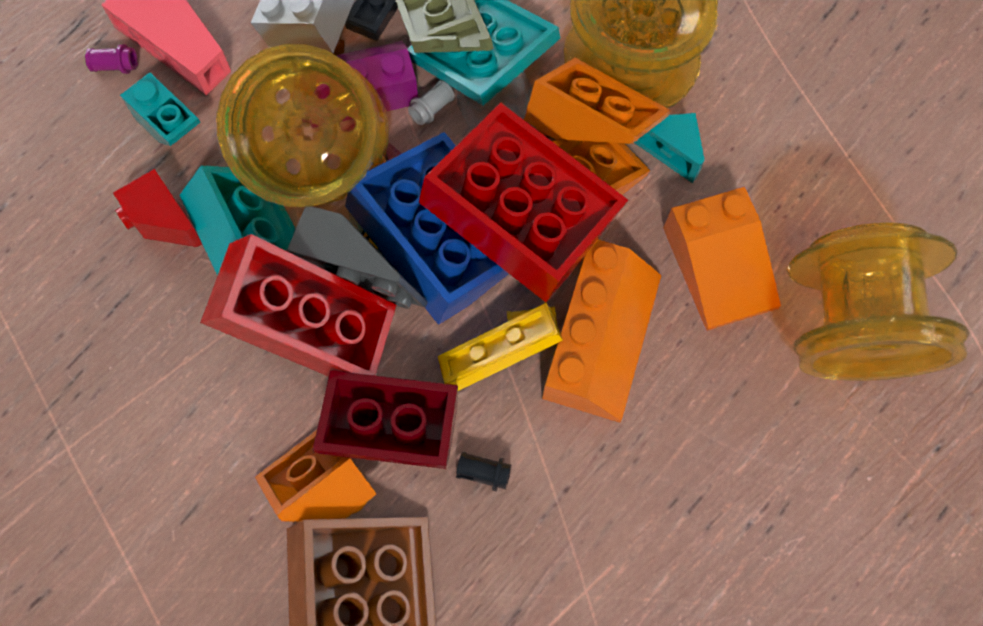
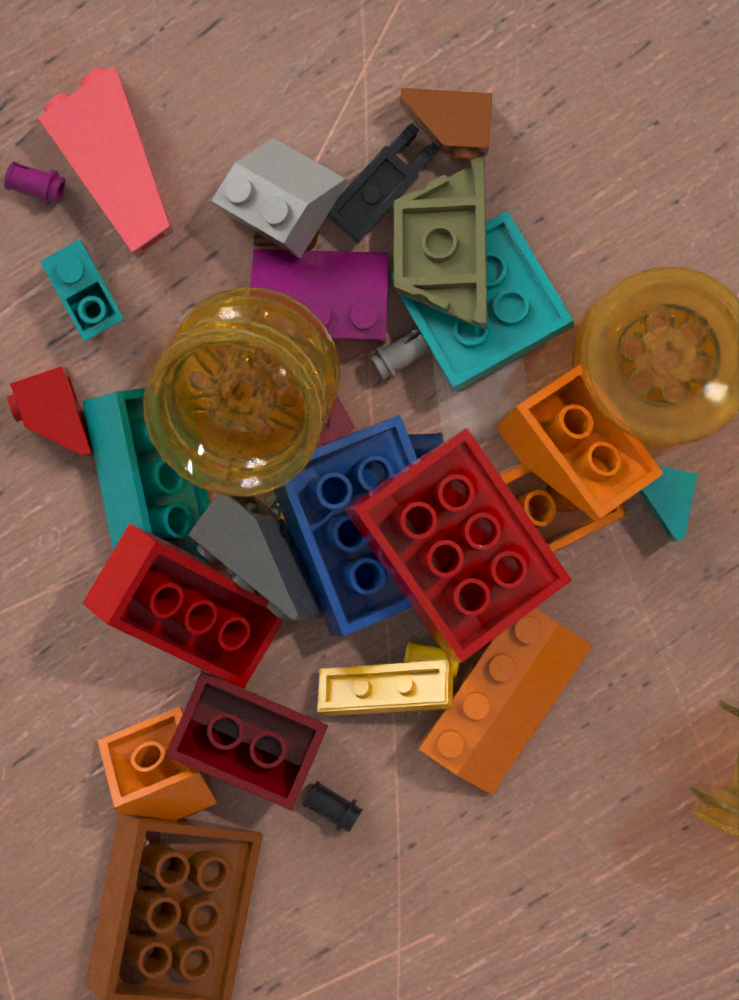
camera: 15 degrees right, 20 degrees up
(723, 257) = (666, 652): orange slope -> none

